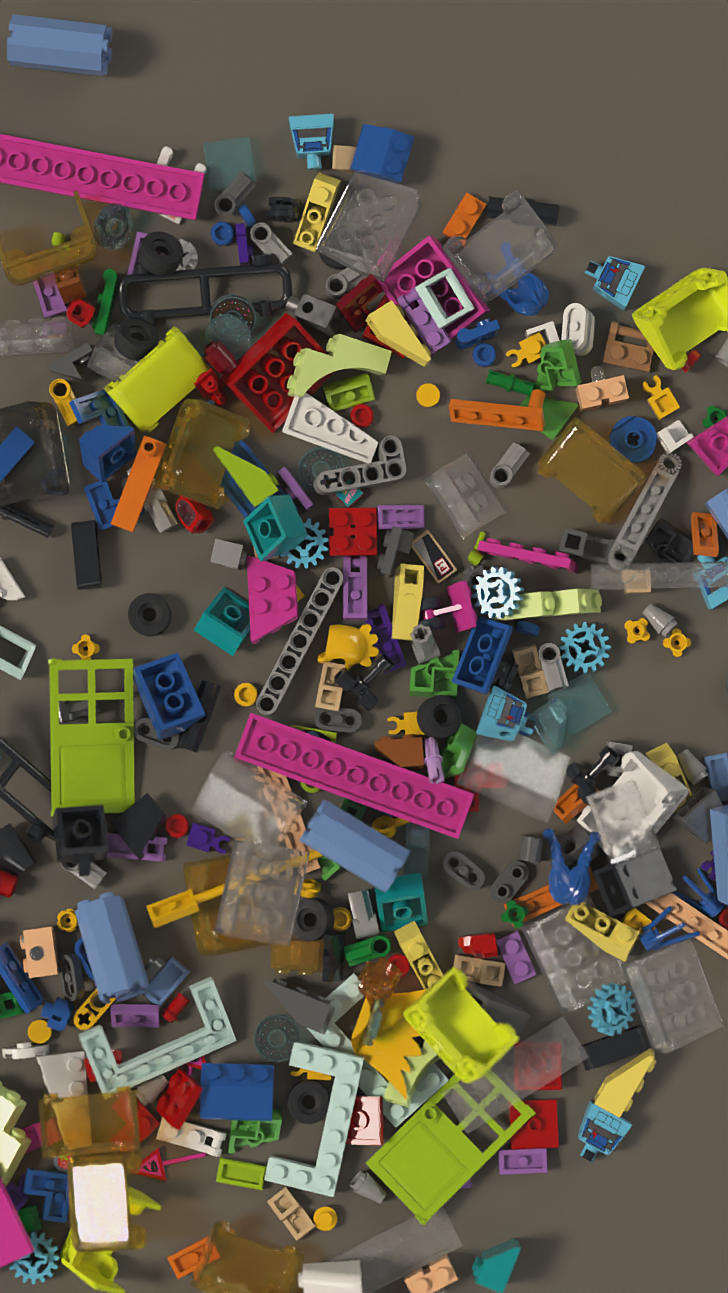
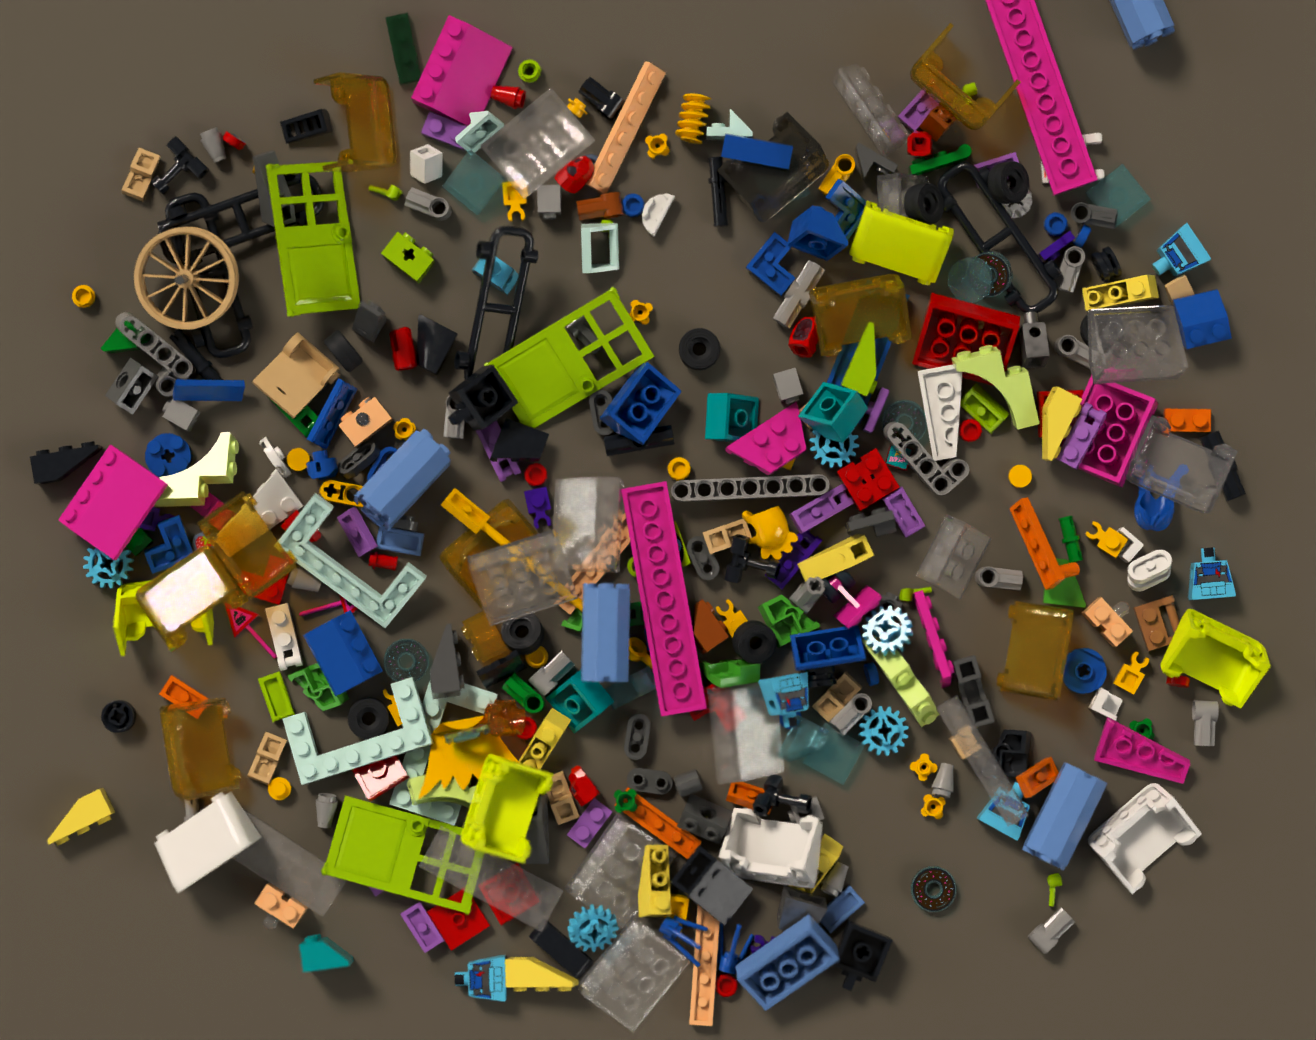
camera: 60 degrees right, 0 degrees up
(86, 555) = (718, 267): black beam -> none
(104, 222) = (1008, 120): clear light blue tile -> none
(138, 484) = (803, 276): orange piece -> none
(178, 1099) = (309, 608): red plate -> none
(211, 387) = (920, 289): red hinge -> none
(219, 357) = (949, 282): dark red brick -> none
(310, 888) = (547, 616): yellow plate -> none
(354, 304) = (1061, 369): dark red plate -> none
(432, 556) = (886, 558): slope -> none
(433, 760) = (714, 658): lavender axle -> none
(434, 306) = (1099, 435): light aqua tile -> none
(484, 355) = (1081, 503): blue tile -> none
(485, 330) = (1100, 491): blue plate -> none
(557, 366) = (1107, 571): bright green slope -> none
(565, 884) = (675, 828): blue hair -> none
(623, 822) = (755, 847): clear slope -> none
(644, 511) = (1028, 715): light grey plate -> none

